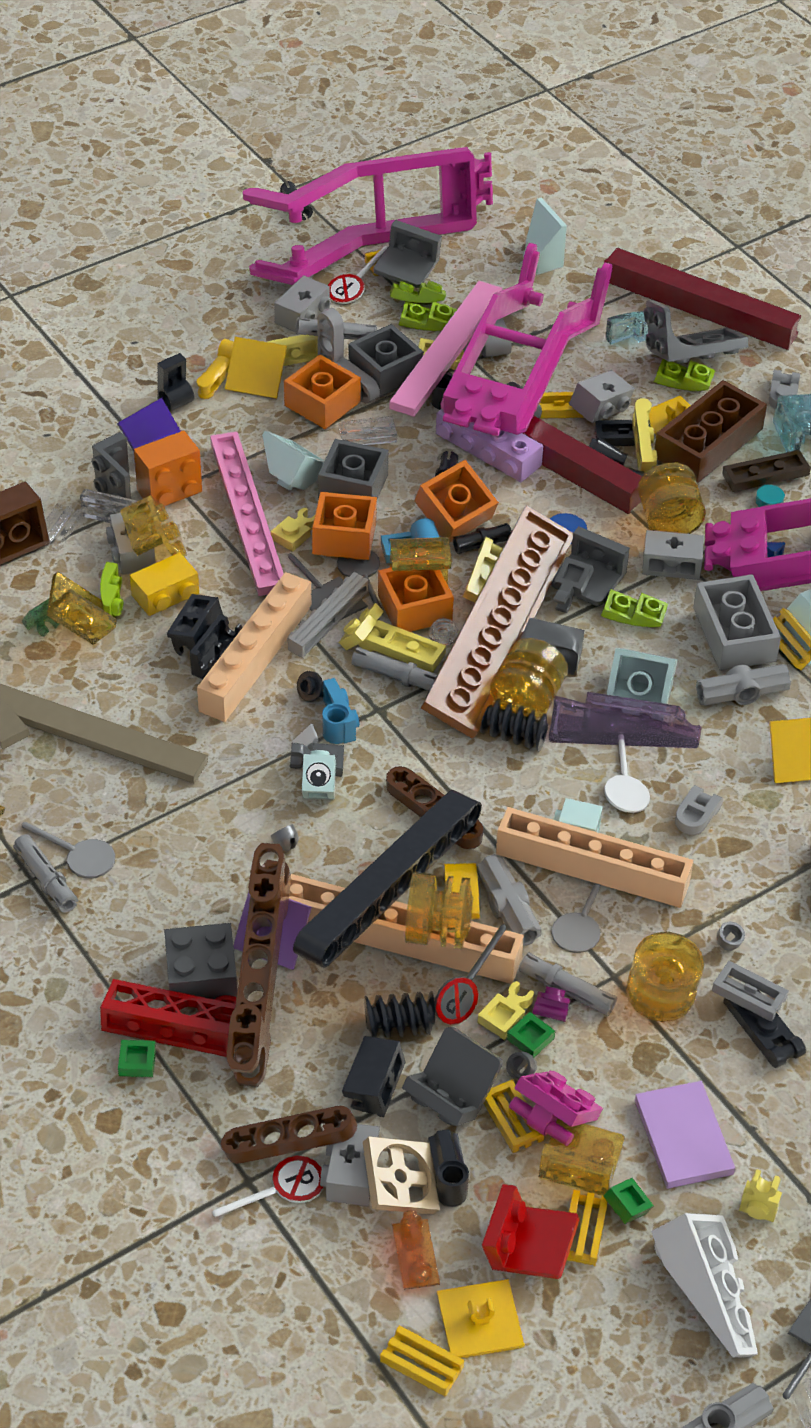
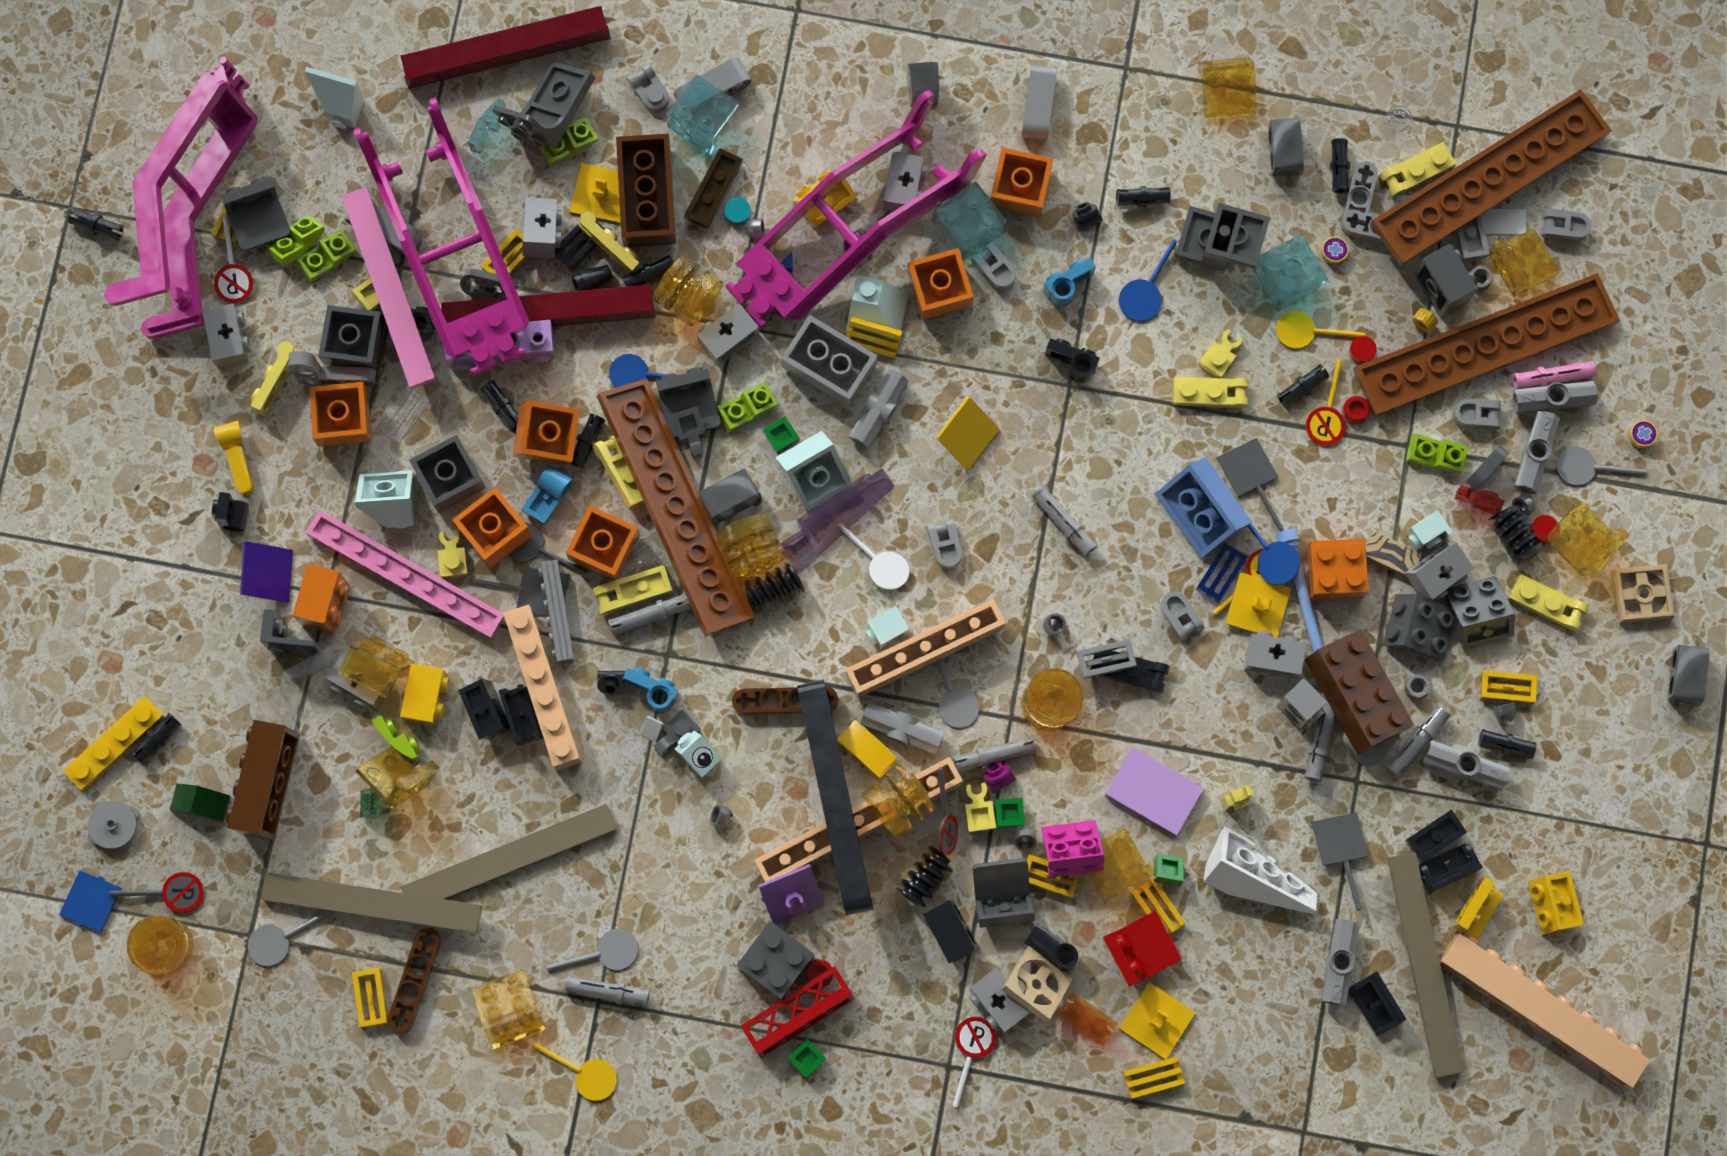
camera: 45 degrees left, 30 degrees up
(251, 1020) = (855, 970): reddish brown piece -> none
(256, 367) = (266, 435): yellow piece -> none
(289, 1139) = (950, 1022): reddish brown beam -> none
(351, 330) = (297, 343): light grey pin -> none
(359, 628) = (593, 603): light yellow plate -> none
(421, 554) = (584, 516): clear yellow bracket -> none
(641, 640) = (781, 435): none -> green plate

